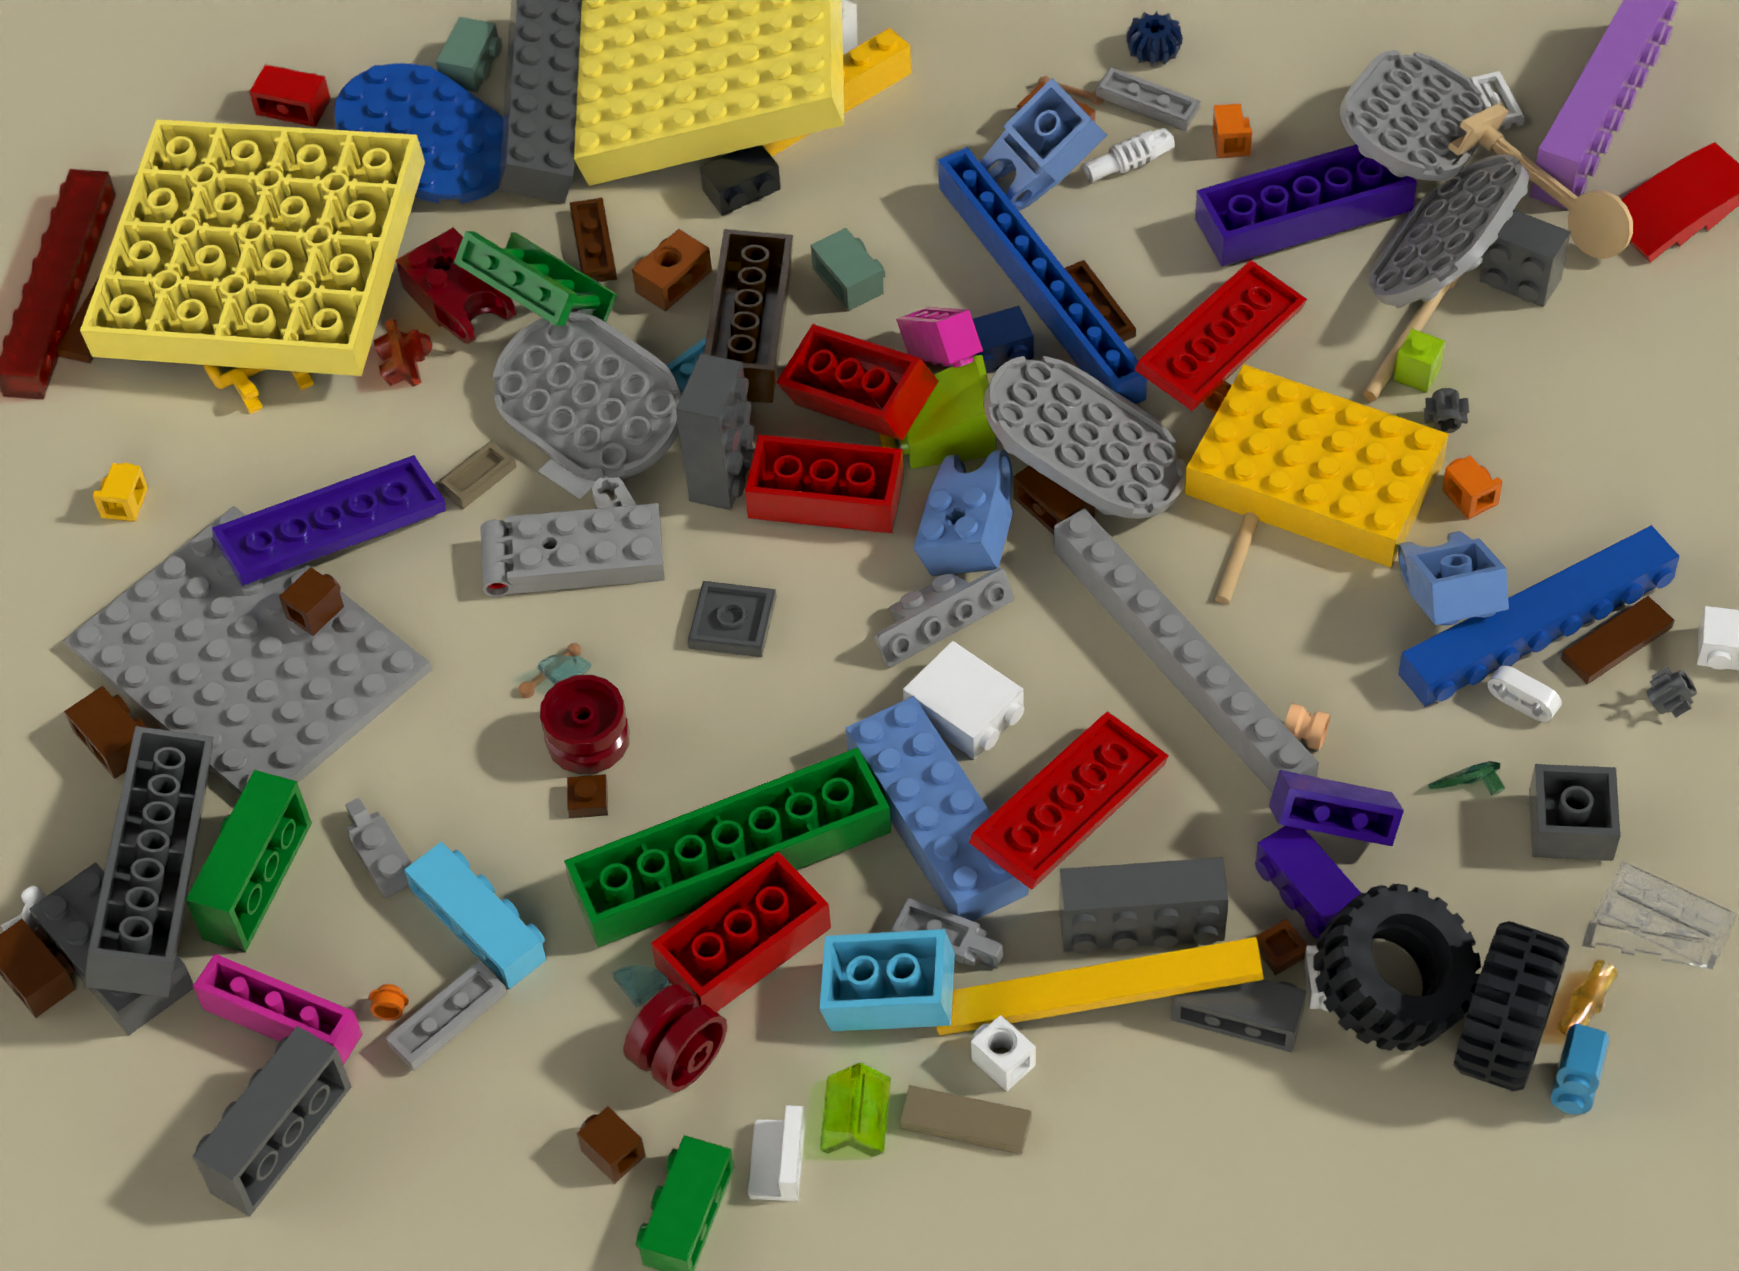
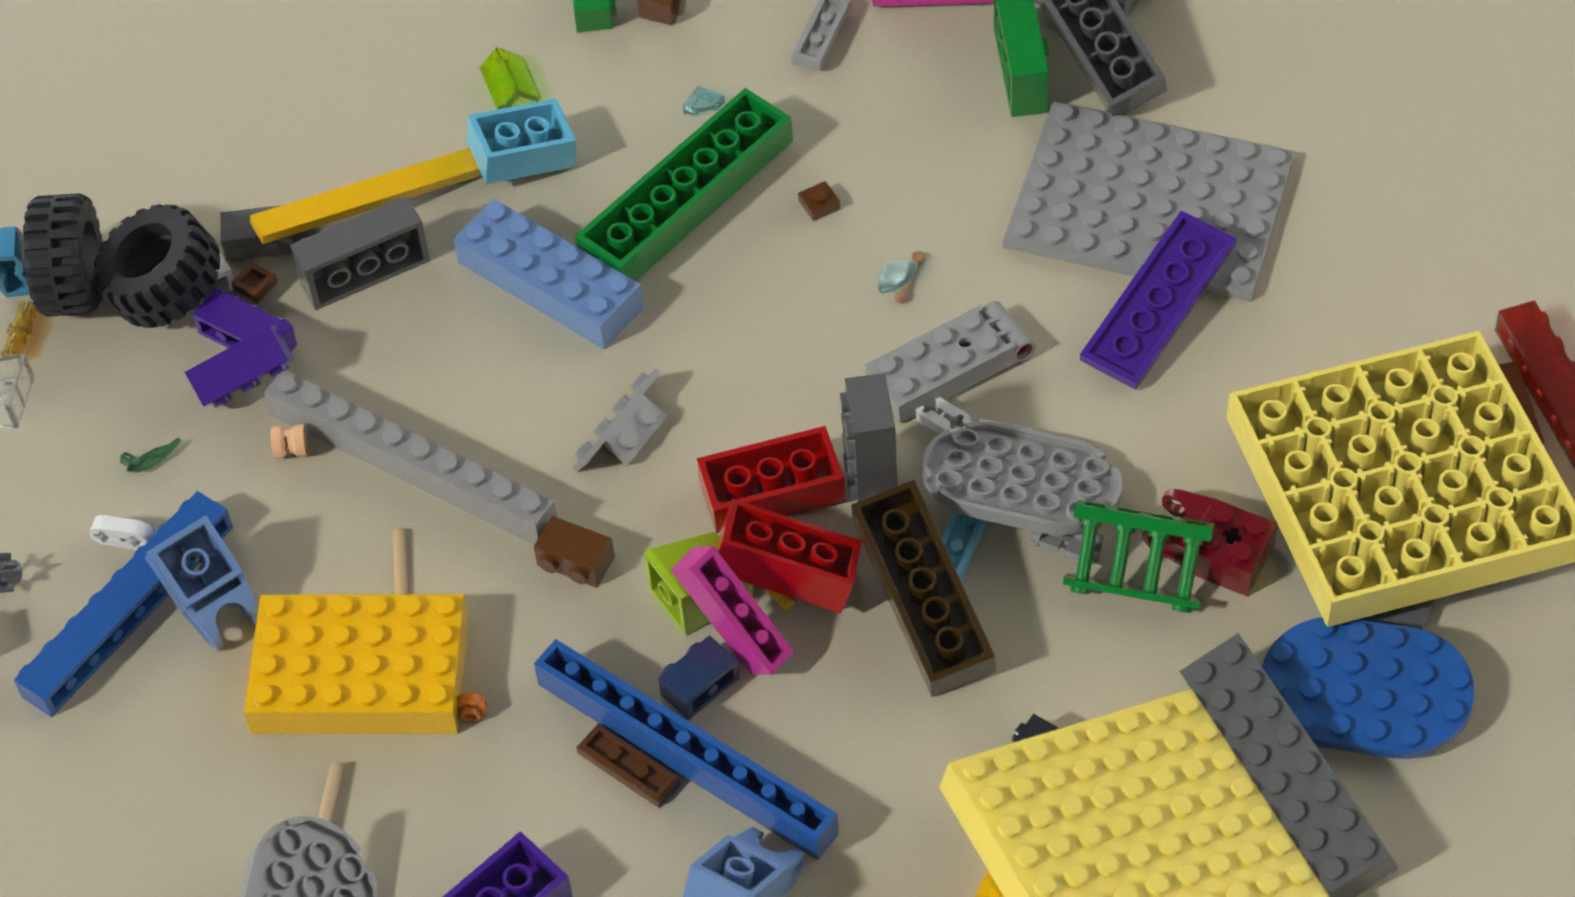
camera: 155 degrees right, 0 degrees up
(104, 728) = (1201, 102): reddish brown brick -> none
(121, 492) = (1349, 266): yellow brick -> none
(290, 95) = (1531, 679): red brick -> none
(312, 600) = (1116, 224): reddish brown brick -> none
(377, 848) = (945, 112): light grey hinge -> none
(388, 1002) = (867, 25): orange plate -> none
(406, 352) = (1215, 467): clear red hips -> none
(469, 52) = (1395, 795): sand green brick -> none
(476, 914) = (843, 90): medium azure brick -> none
(477, 474) = (1077, 400): dark tan tile -> none
(584, 724) = (846, 227): dark red wheel -> none
(593, 239) = (1132, 651): reddish brown tile -> none
(671, 269) = (1032, 619): dark orange brick -> none
(675, 1038) = (647, 54): dark red wheel -> none
(732, 618) = (790, 366): dark grey tile -> none
(742, 933) = (641, 133): red brick -> none
(777, 1157) = (547, 40): white panel -> none
(847, 268) = (872, 700): sand green brick -> none
(965, 1119) = (433, 106): dark tan tile -> none
(966, 516) = (634, 489): medium blue brick -> none
(966, 699) = (567, 361): white brick -> none
(966, 937) = (522, 199): light grey hinge -> none
(1008, 1067) = (423, 141): white brick -> none
(1068, 800) = (444, 299): red plate -> none
(1084, 437) = (563, 580): light grey plate -> none
(1220, 335) = (484, 741): red plate -> none
(1419, 360) = (297, 797): lime brick -> none
(1446, 410) = (258, 761): dark grey gear -> none
(1471, 487) = (215, 697): orange brick -> none
(1574, 812) = (57, 442): dark grey brick -> none
(1617, 639) = (53, 615): reddish brown tile -> none

